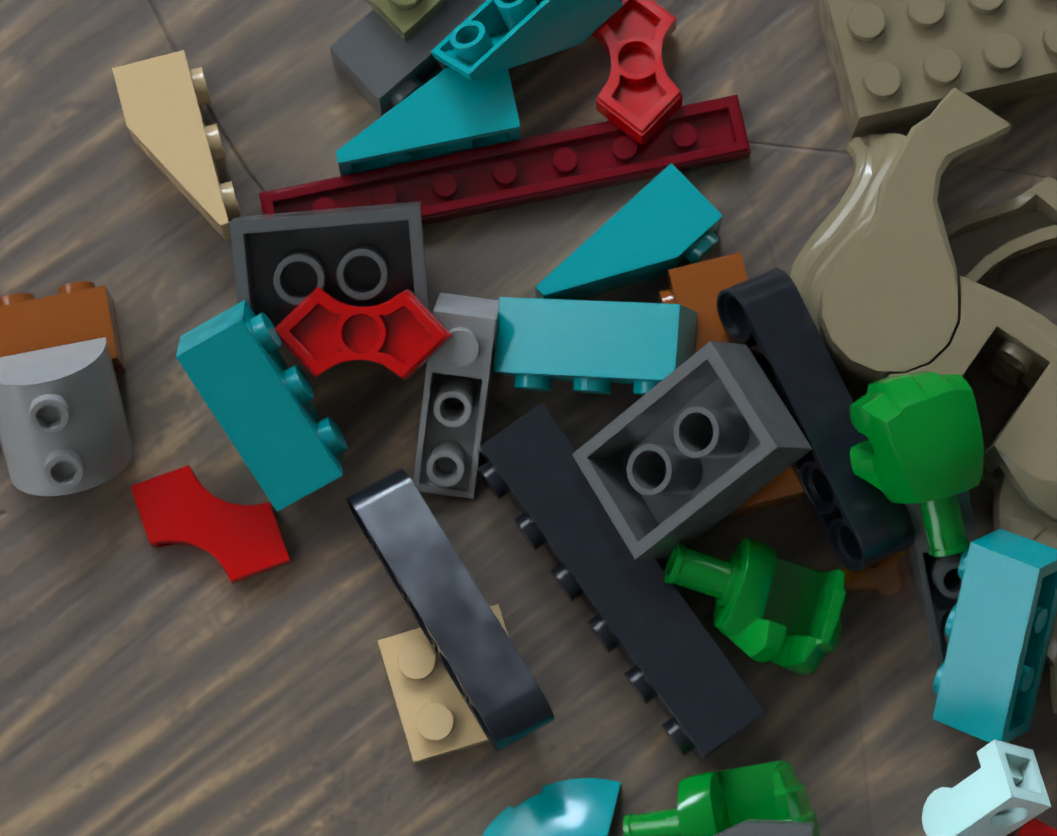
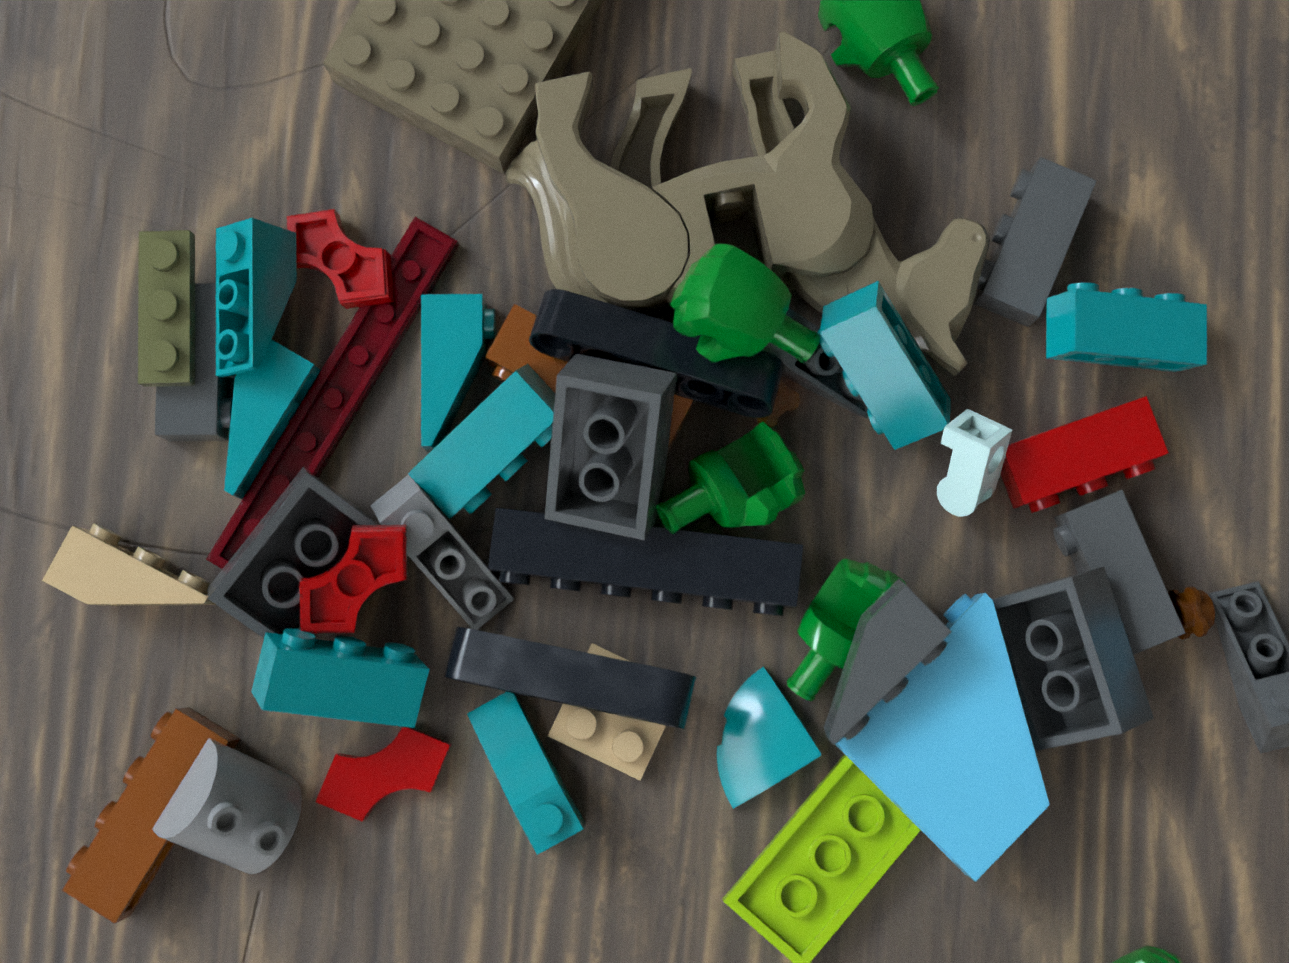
camera: 45 degrees left, 5 degrees up
(327, 651) = (526, 772): none -> teal slope

